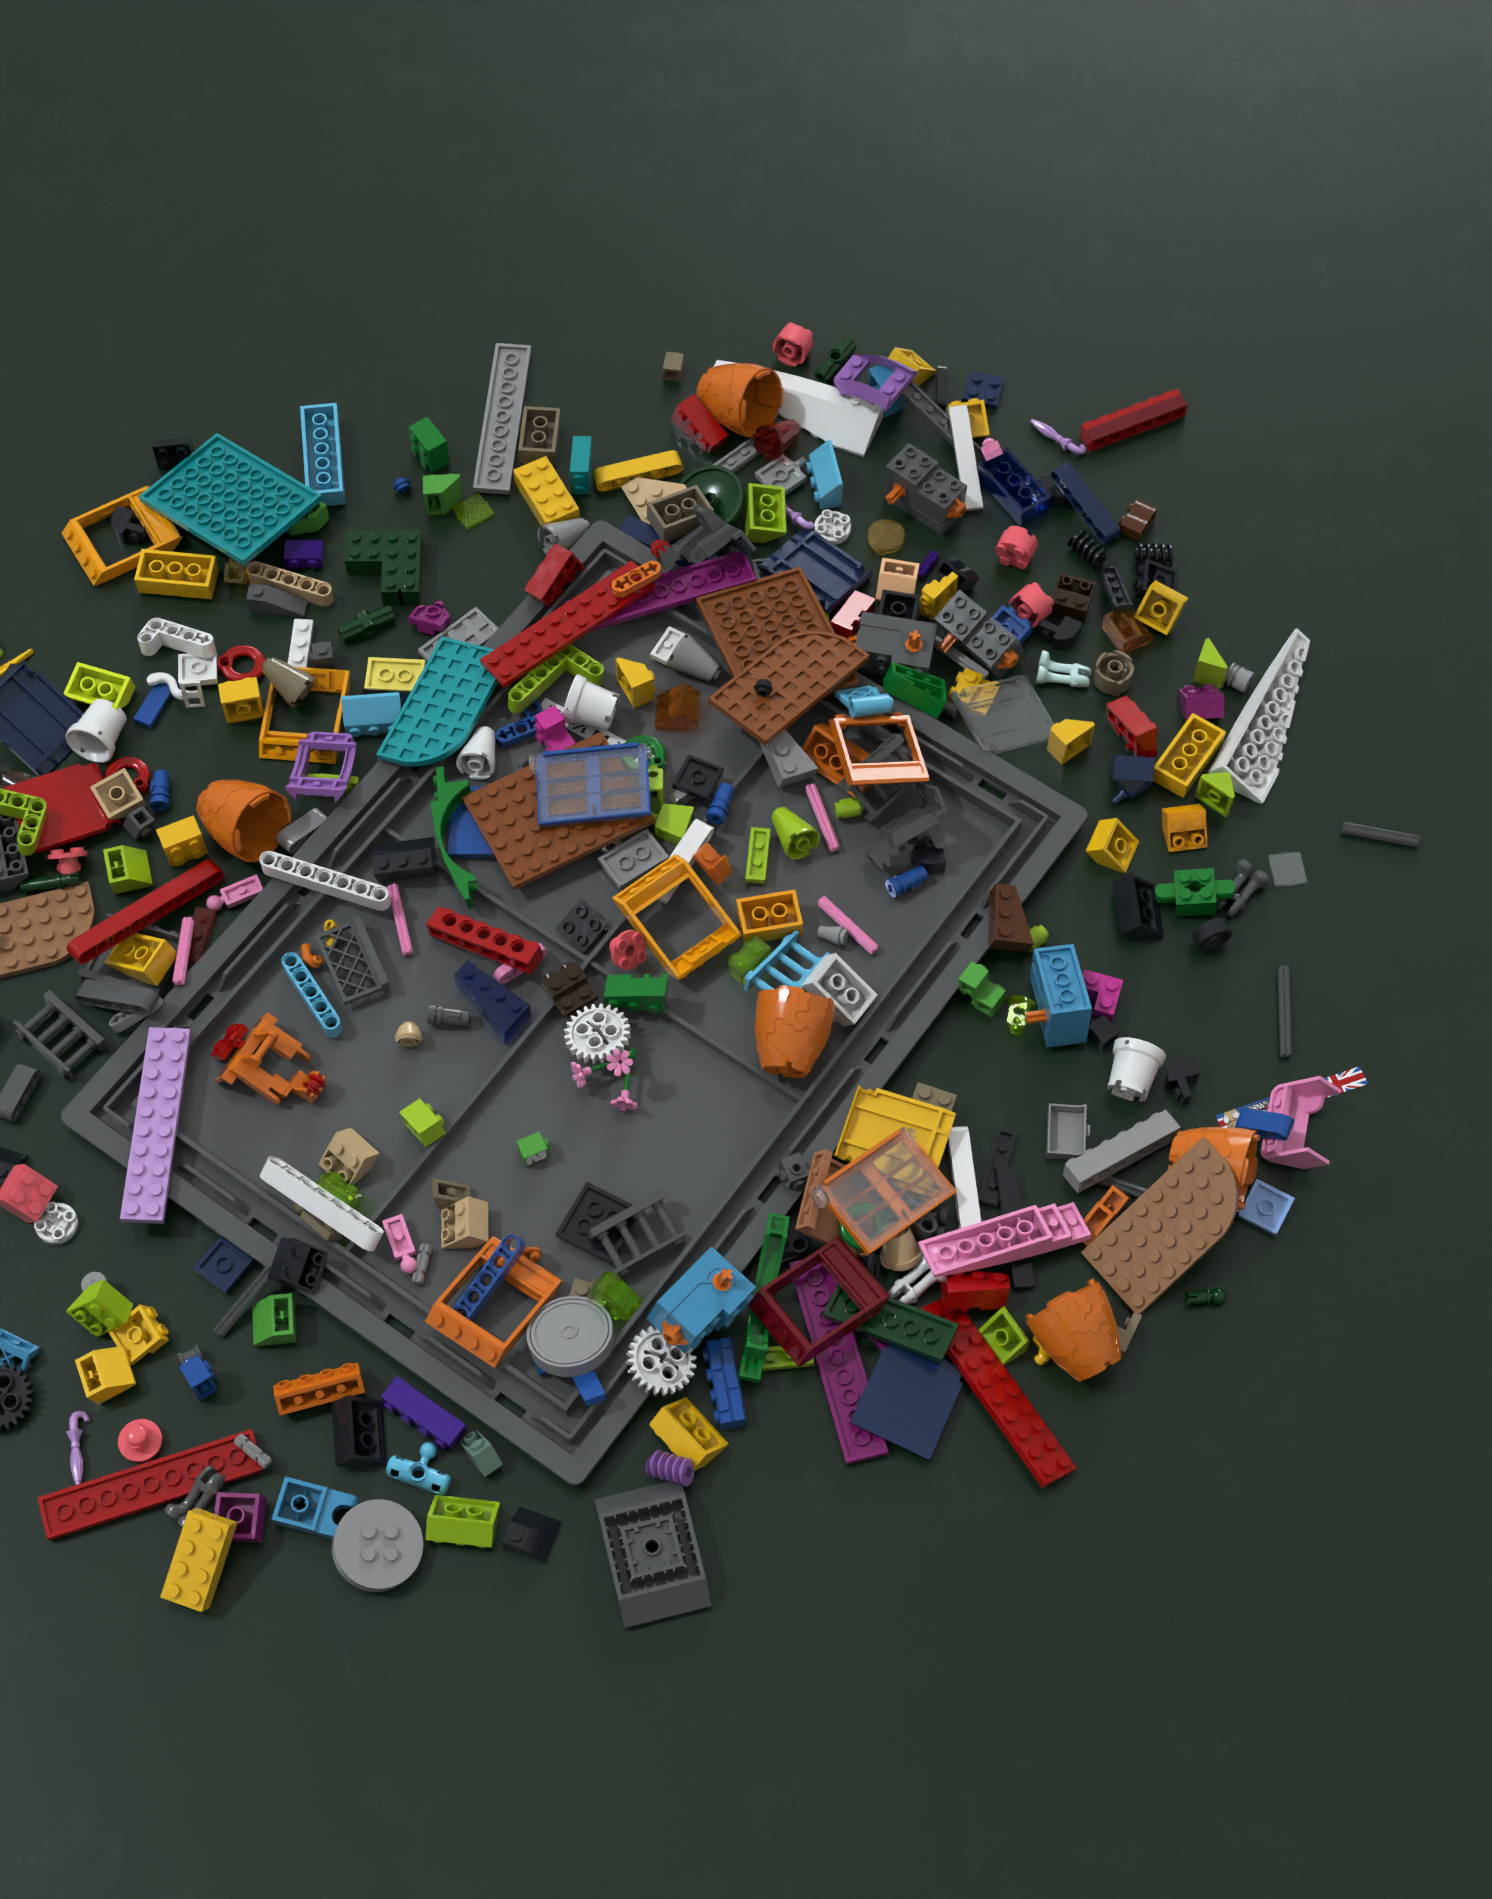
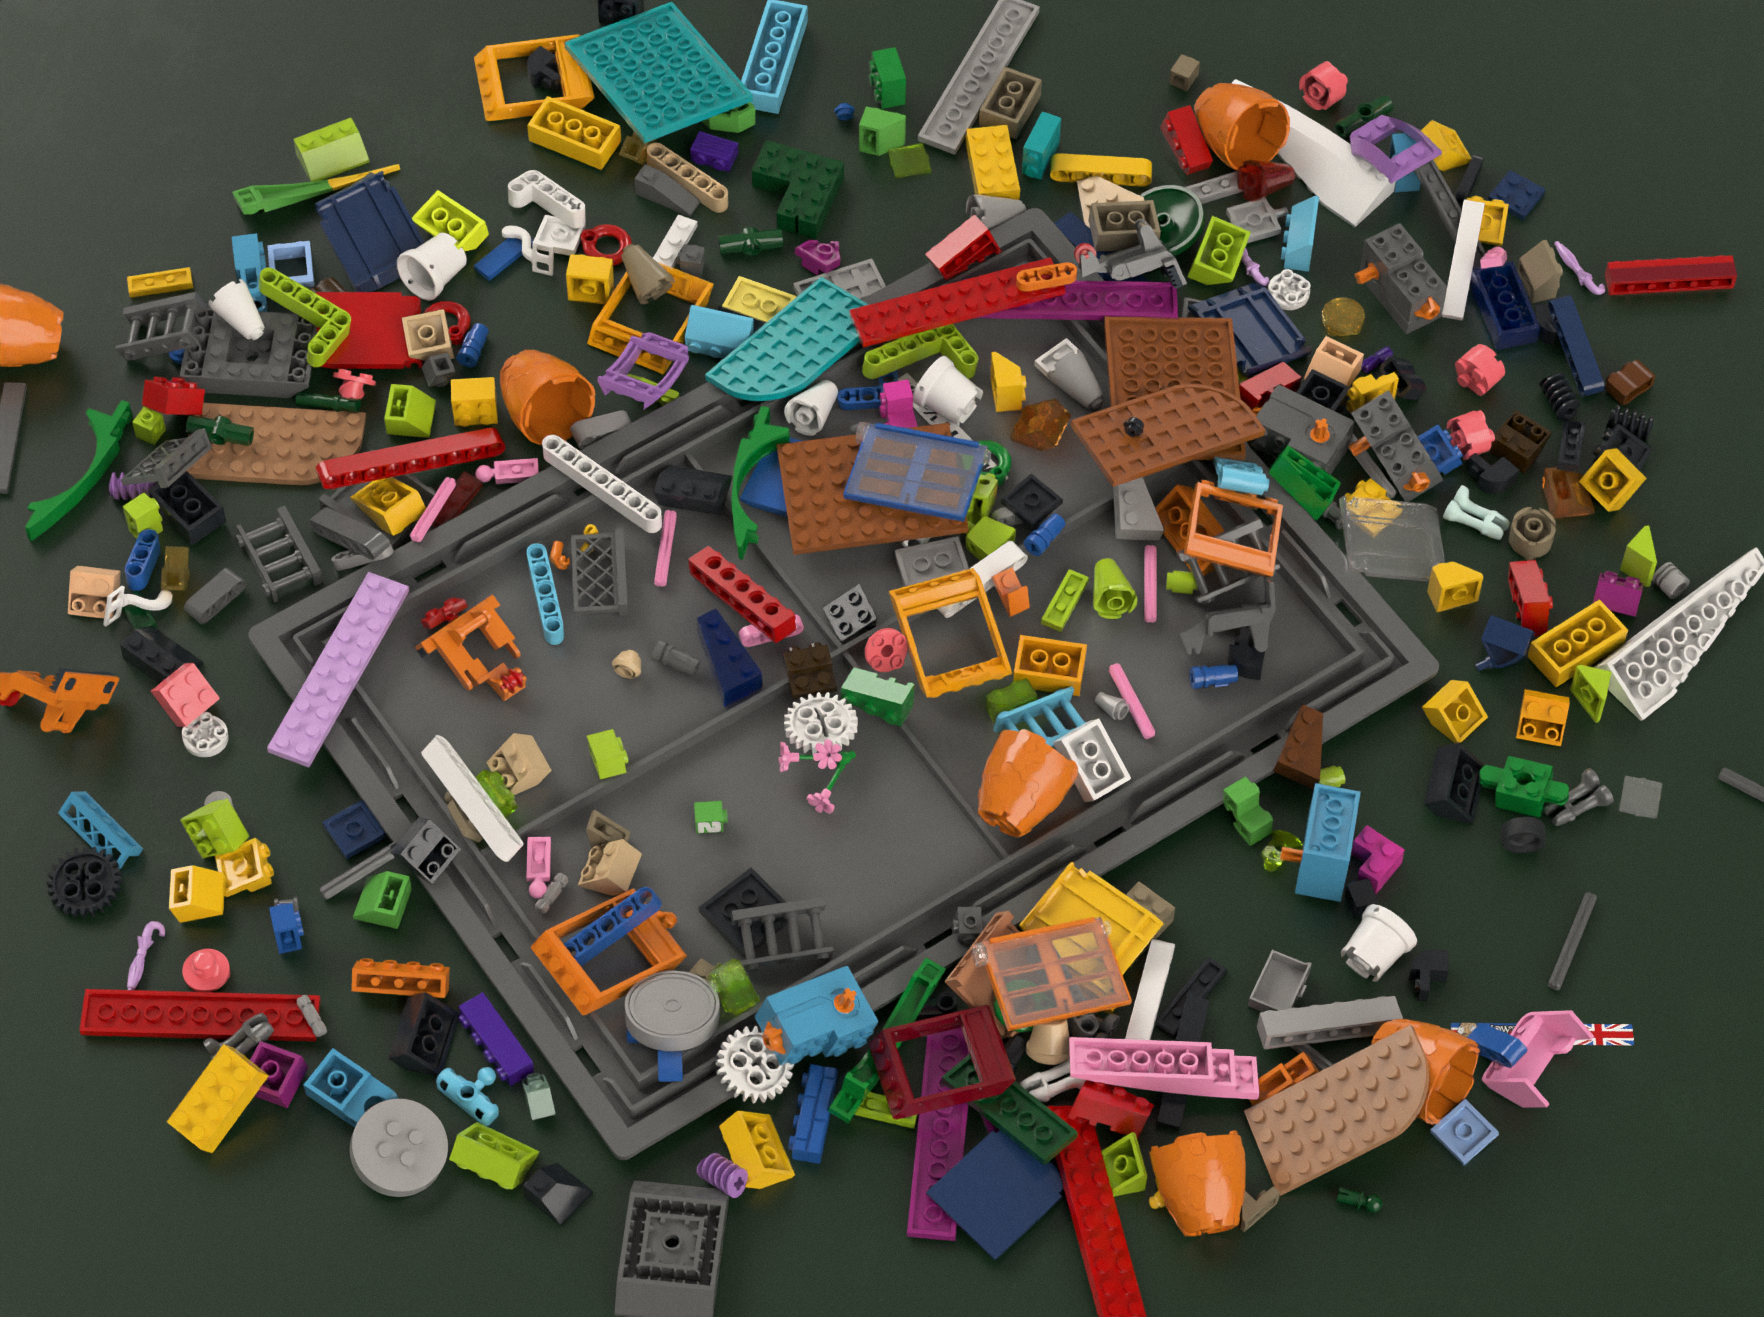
camera: 20 degrees right, 5 degrees down
(1032, 448) = (1540, 272): none -> dark tan slope

